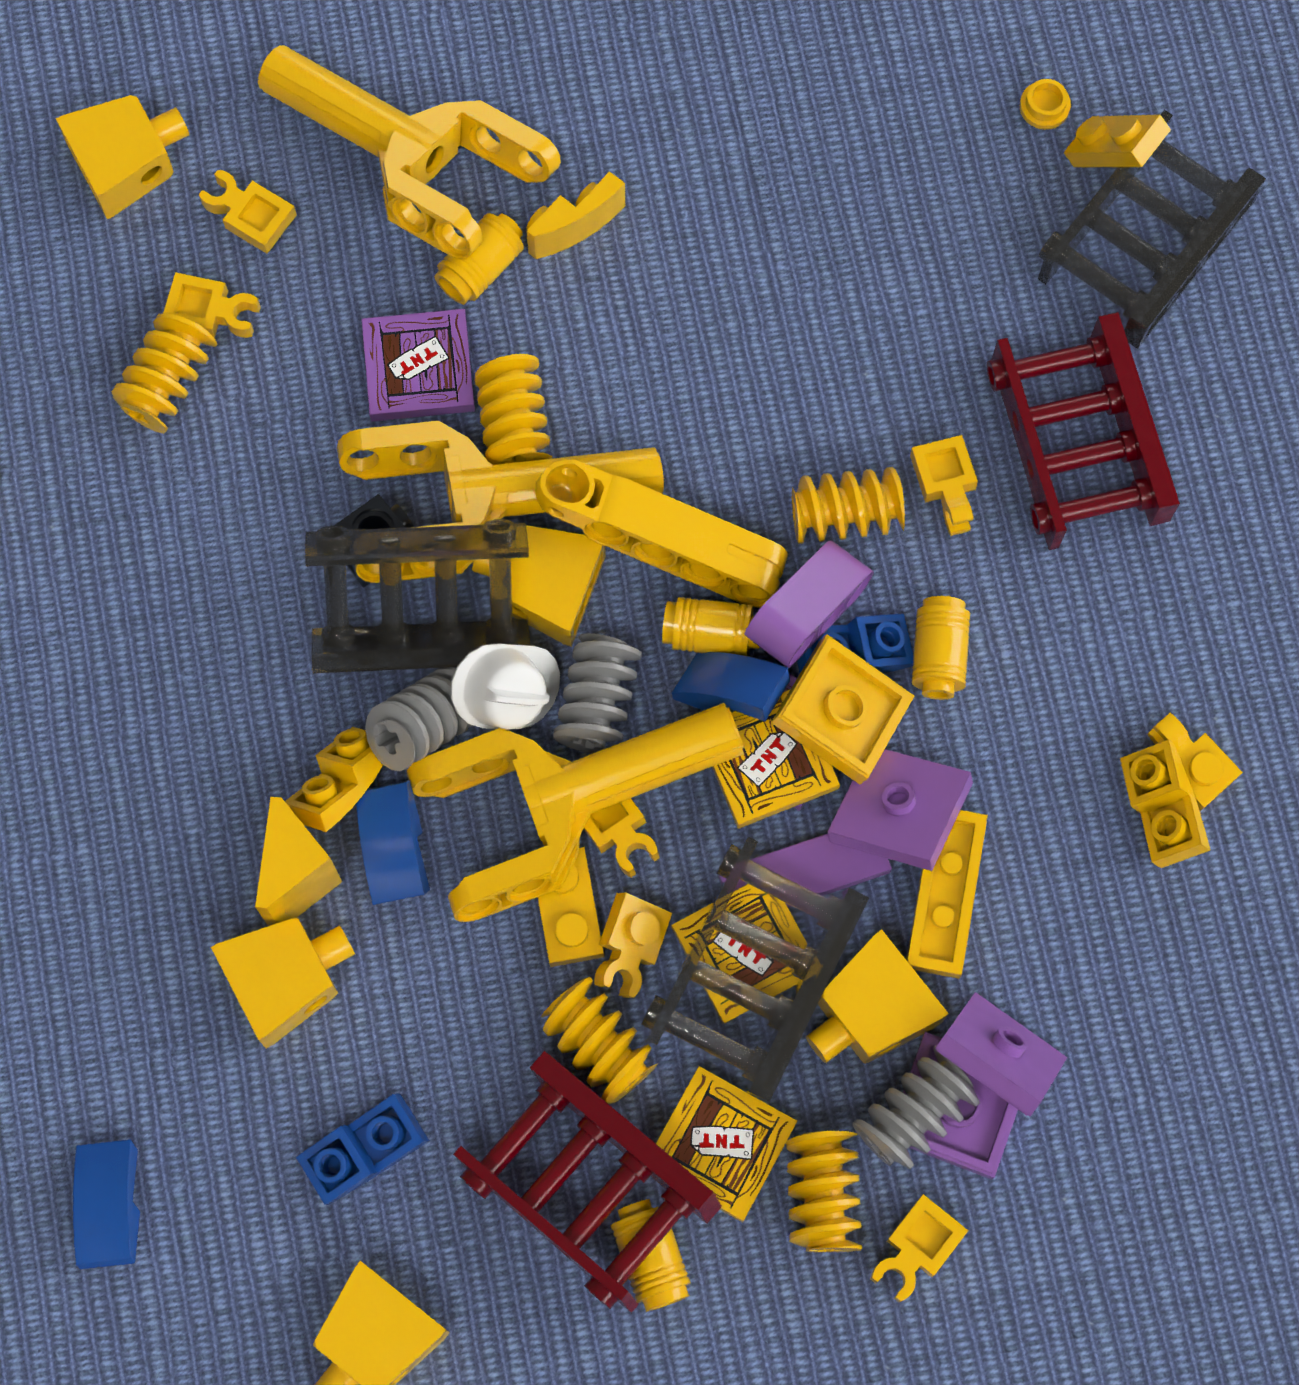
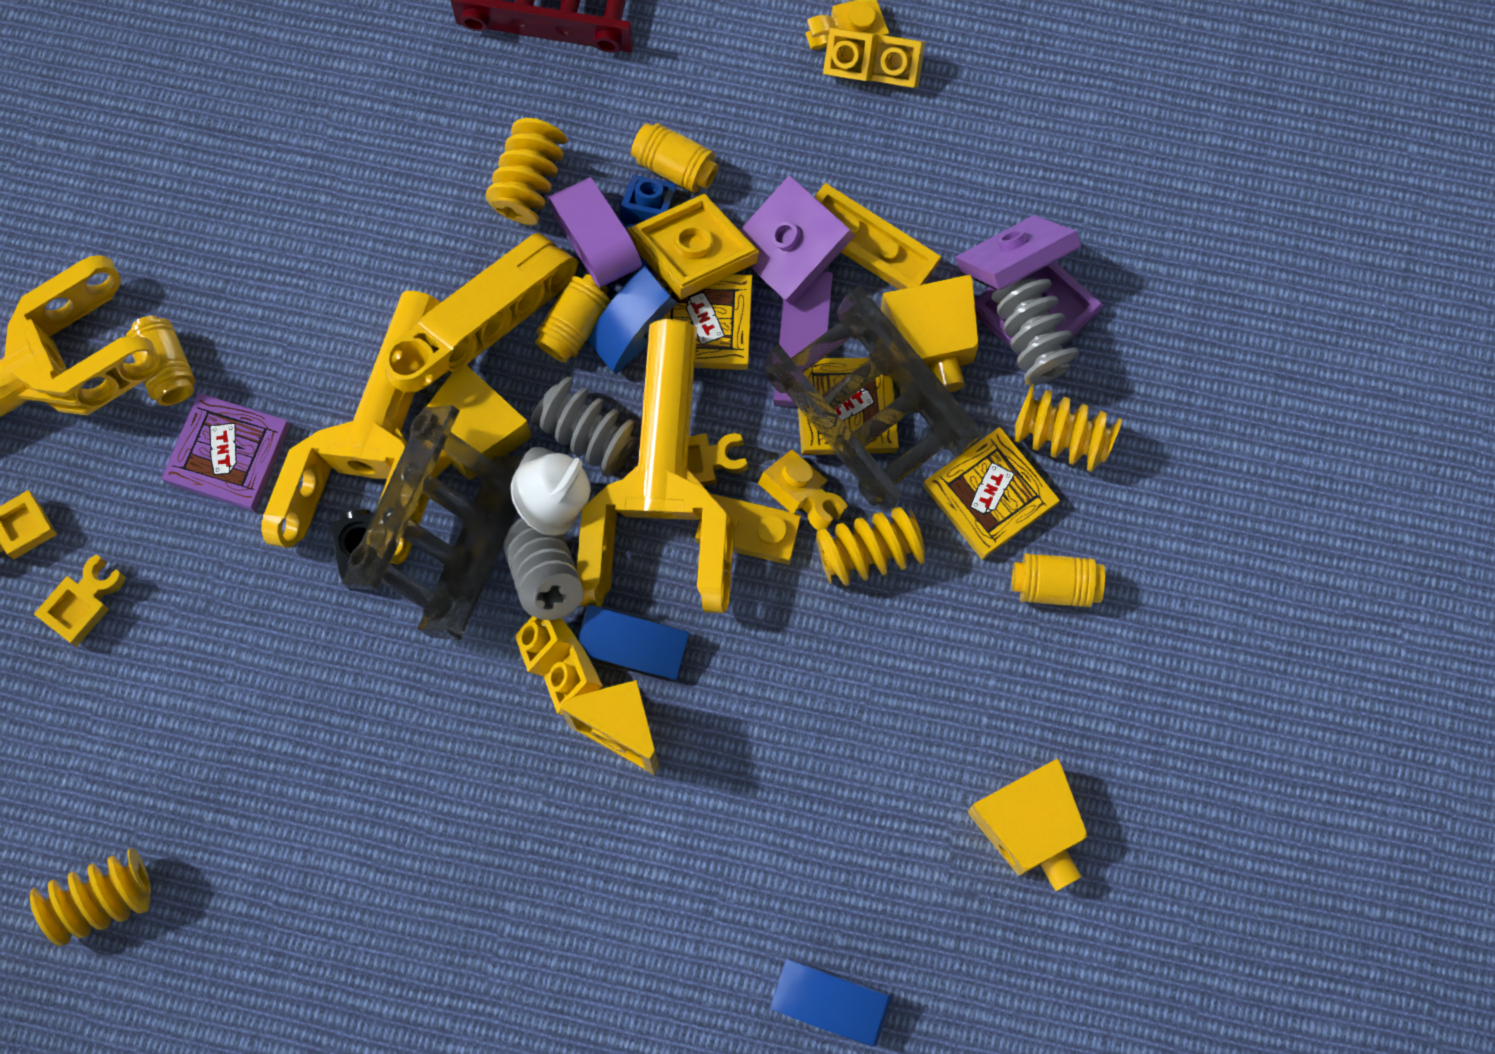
camera: 65 degrees left, 0 degrees up
(160, 368) = (115, 663): yellow piece -> none
(281, 974) = (702, 776): yellow torso -> none
(362, 1149) = (874, 772): blue slope -> none
(509, 409) = (308, 392): yellow piece -> none
(564, 225) = (168, 273): yellow slope -> none
(639, 1161) = (987, 550): dark red fence -> none
(923, 1242) = (1132, 375): yellow plate -> none
(946, 474) = (536, 91): yellow plate -> none

